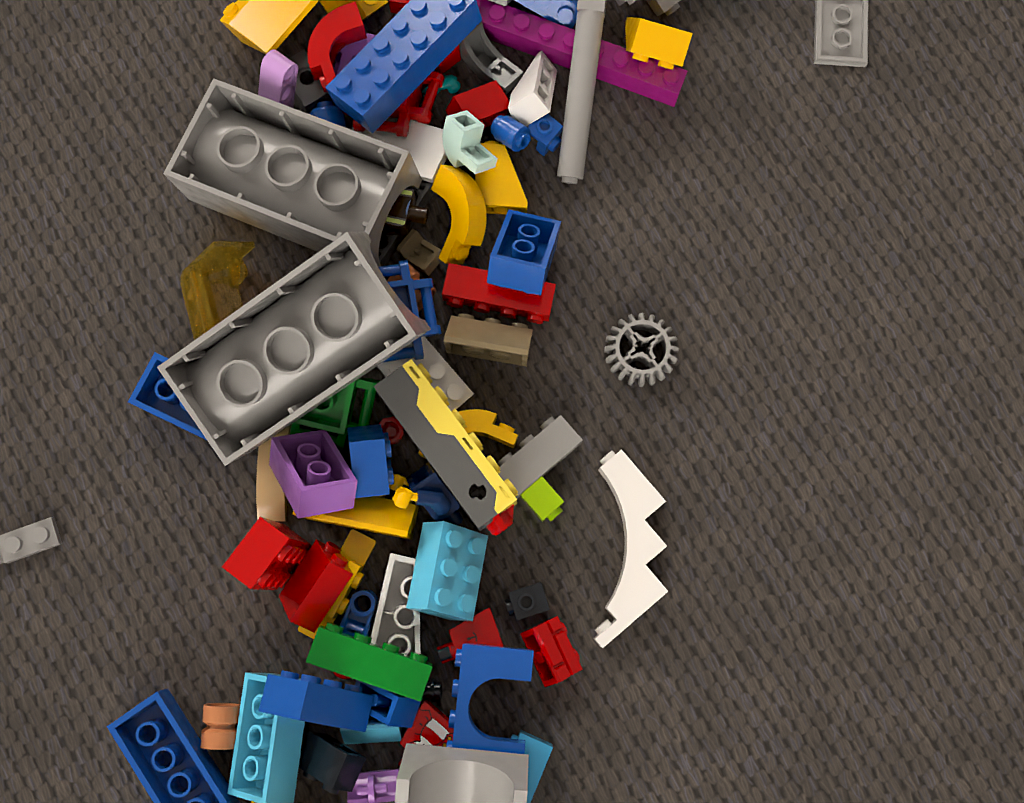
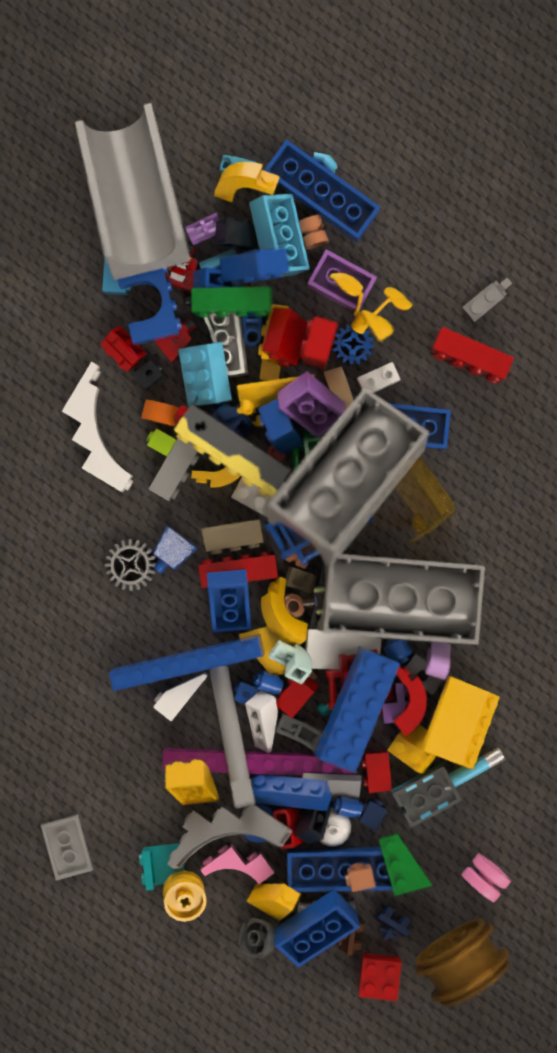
camera: 160 degrees right, 10 degrees up
(70, 468) = (471, 355): none -> red brick
(193, 570) = (363, 319): none -> yellow plant
(207, 637) = (322, 284): none -> medium lavender brick
(211, 535) = (363, 345): none -> blue gear
(212, 482) = (379, 378): none -> white brick
(439, 220) = (294, 605): none -> nougat head
(529, 540) = (159, 412): none -> orange brick
(577, 349) = (172, 550): none -> torso
(608, 193) = (187, 662): none -> blue brick
(636, 160) = (176, 697): none -> white slope

